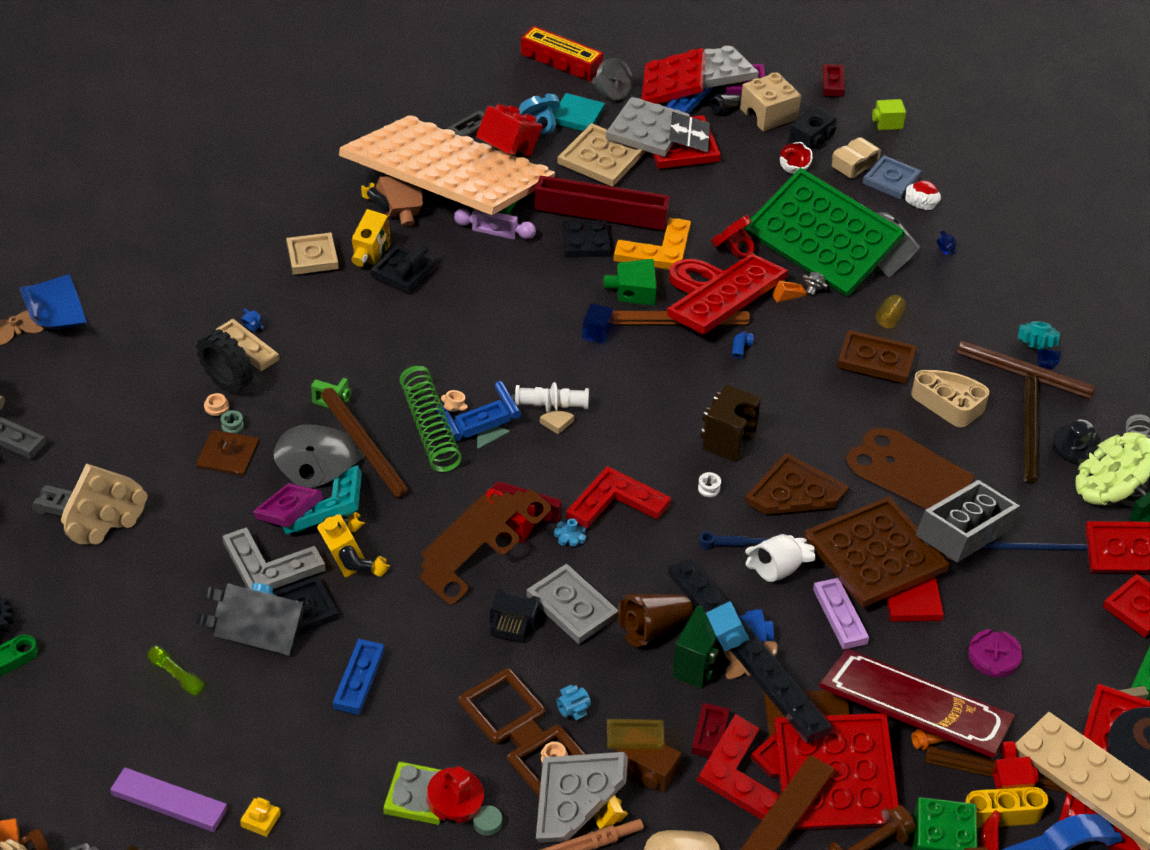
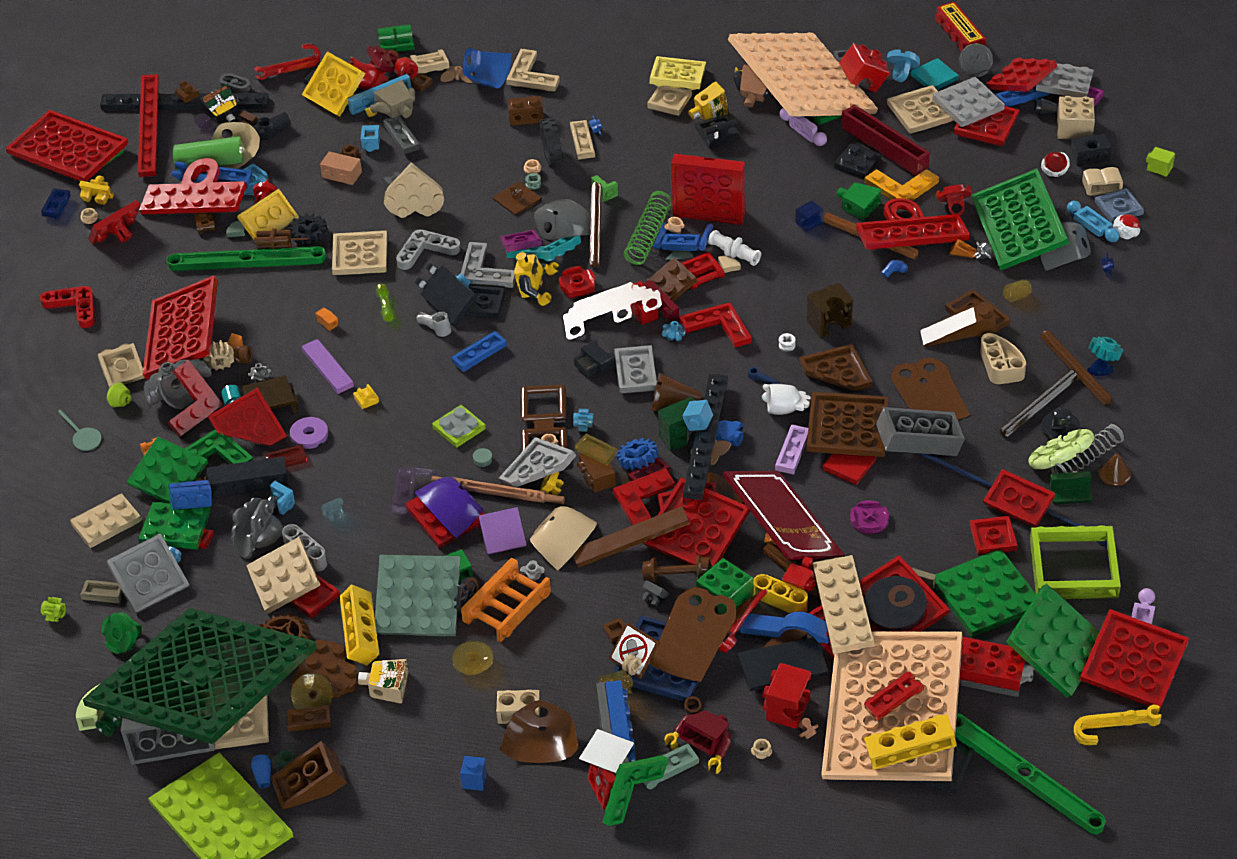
camera: 40 degrees right, 0 degrees up
(83, 618) = (359, 252): none -> tan plate
(106, 299) = (522, 77): none -> tan plate
(113, 732) = (326, 318): none -> orange piece
(149, 337) = (525, 110): none -> reddish brown brick
(155, 567) = (423, 240): none -> light grey beam
(274, 663) = (438, 322): none -> light grey pin
(298, 218) = (677, 73): none -> light yellow plate
(404, 536) = (585, 283): none -> red plate
(455, 794) = (472, 433): red tile -> none
(478, 338) = (708, 189): none -> red piece
(516, 466) = (673, 279): none -> reddish brown plate
(528, 439) = (701, 265): none -> red plate
(680, 711) = (637, 454): none -> blue gear
(689, 131) = (992, 115): black sticker -> none
(833, 80) = (1145, 121): dark red plate -> none
(880, 370) = (966, 323): none -> reddish brown wedge
(892, 204) = (1093, 221): none -> dark azure plate

